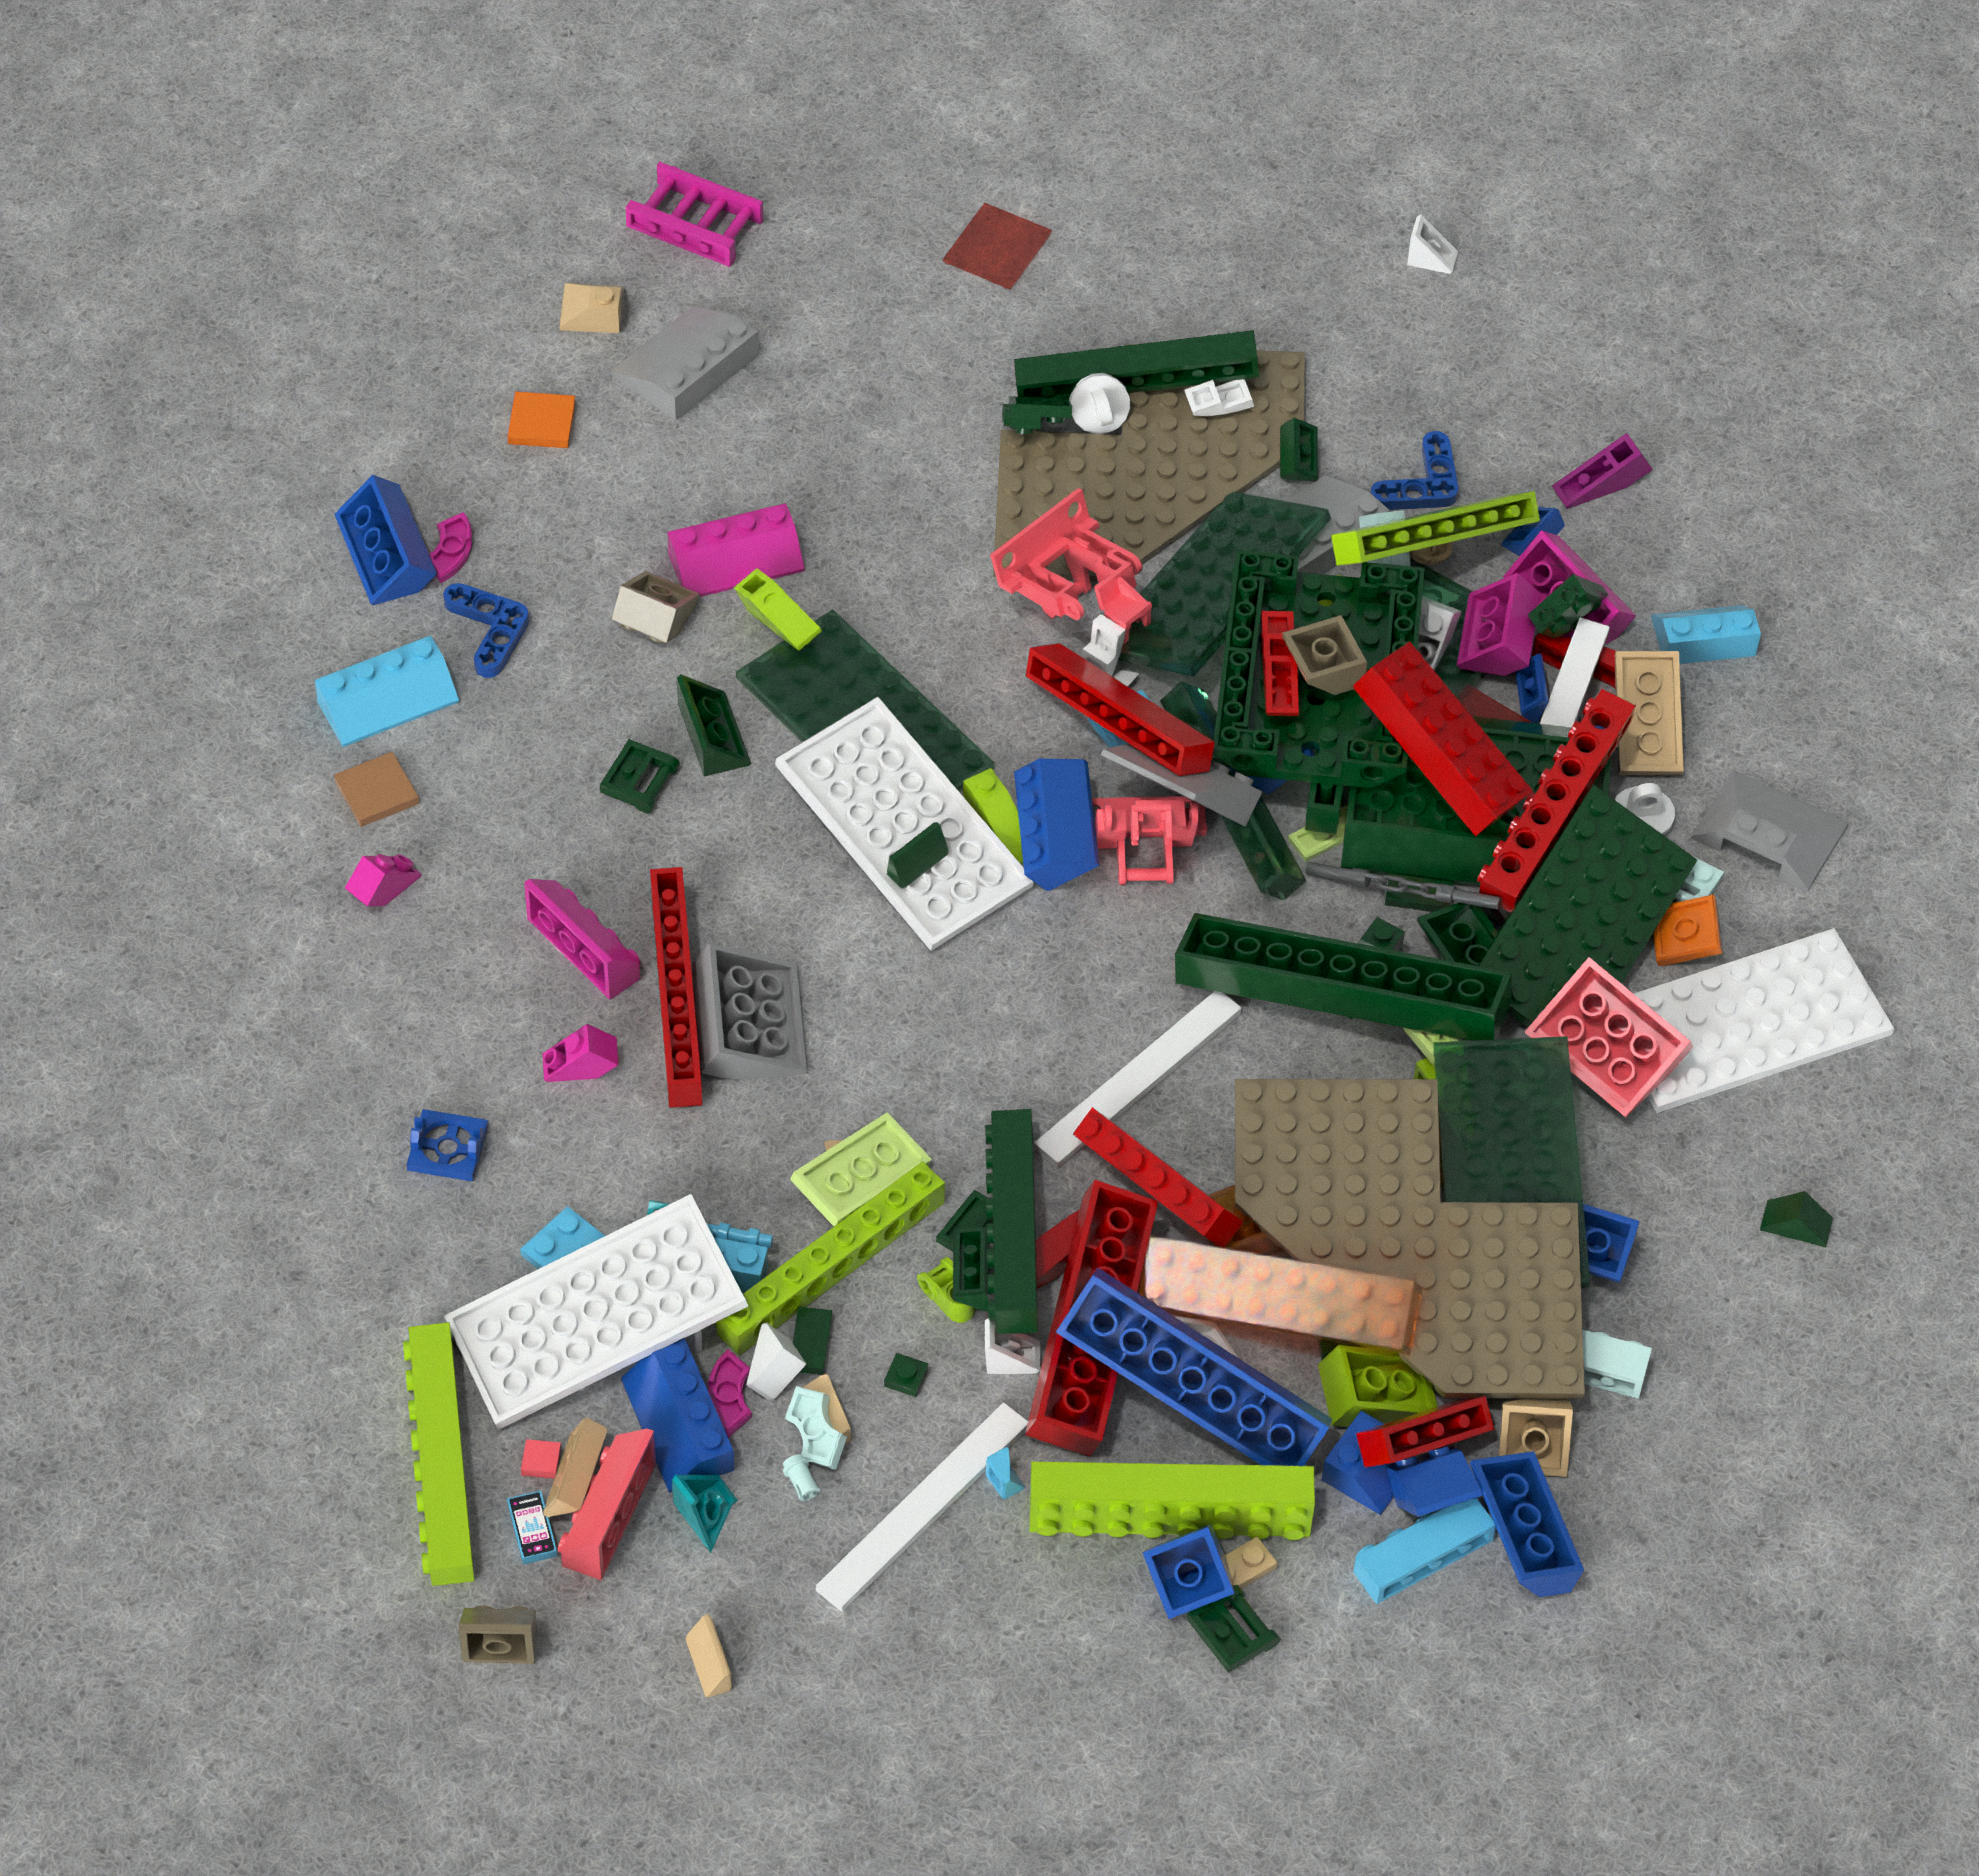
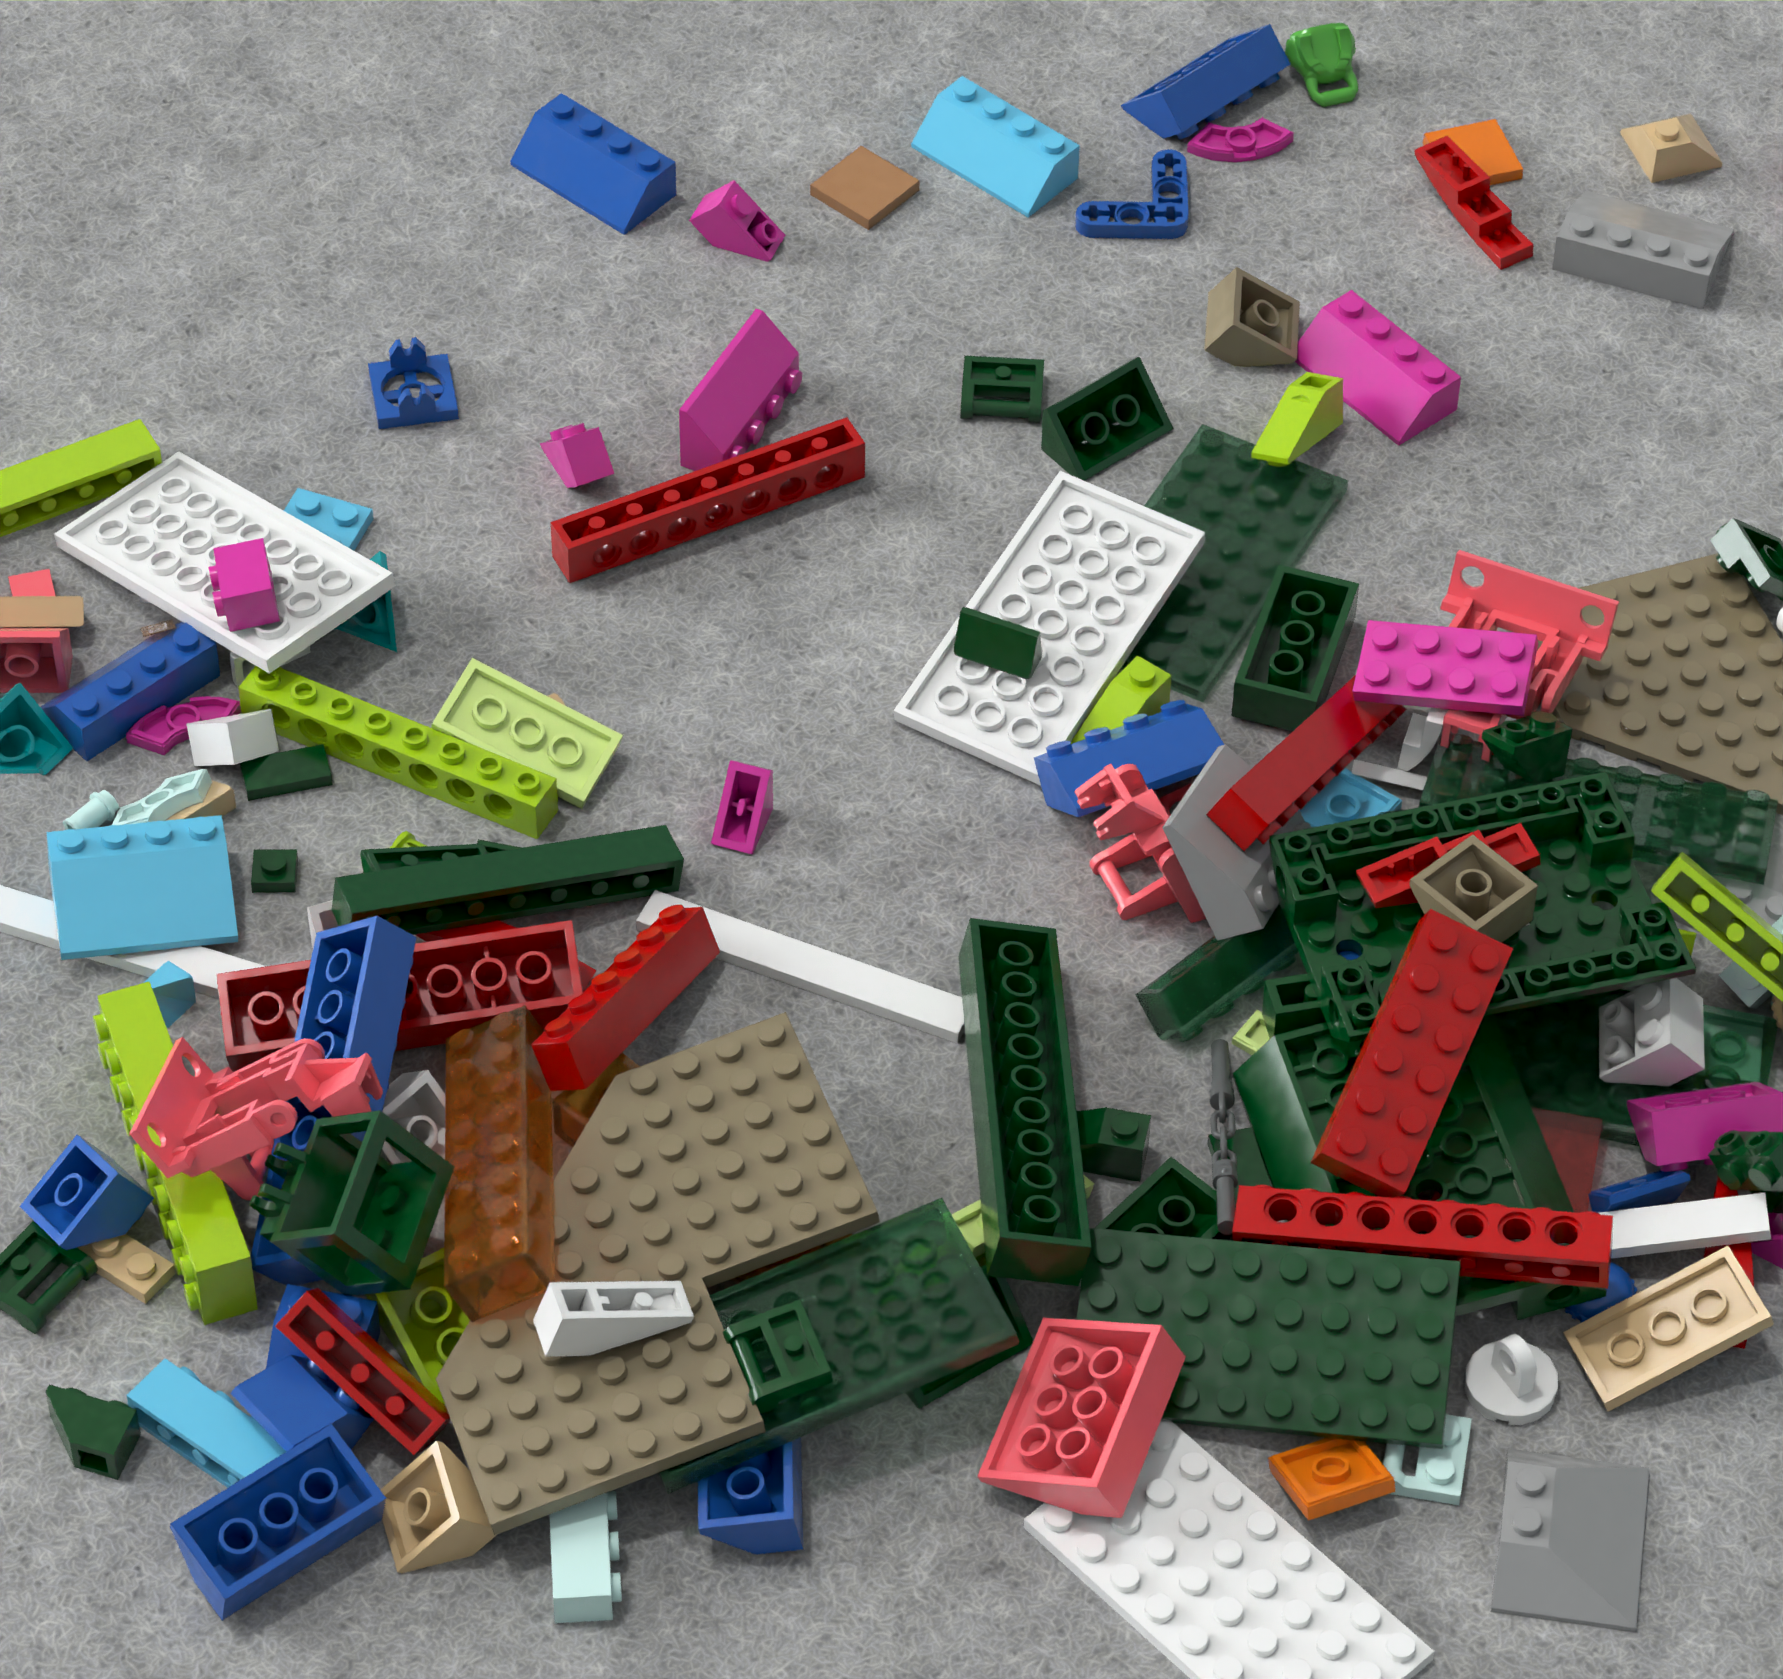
camera: 70 degrees right, 5 degrees down
(265, 949) = (595, 164): none -> blue slope
(403, 461) = (1324, 57): none -> bright green piece
(599, 436) = (1473, 204): none -> red slope
(635, 1378) = (157, 628): none -> clear orange sticker
(662, 1290) = (244, 585): none -> dark pink brick
(744, 1252) = (350, 654): medium azure brick -> none
(747, 1015) = (708, 578): light grey slope -> none
(902, 1459) = (141, 887): none -> medium azure slope
(985, 1063) = (743, 807): none -> dark pink slope
(989, 693) = (1294, 648): none -> dark green brick
(1089, 604) = (1445, 667): none -> dark pink plate
(1164, 588) = (1531, 746): none -> dark green slope
(1178, 1446) = (228, 1114): none -> coral container
(1311, 1382) = (351, 1209): none -> dark green piece
(1391, 1624) = (94, 1431): none -> dark green slope
(1464, 1260) = (605, 1315): none -> white slope
(1527, 1166) = (792, 1348): none -> dark green plate

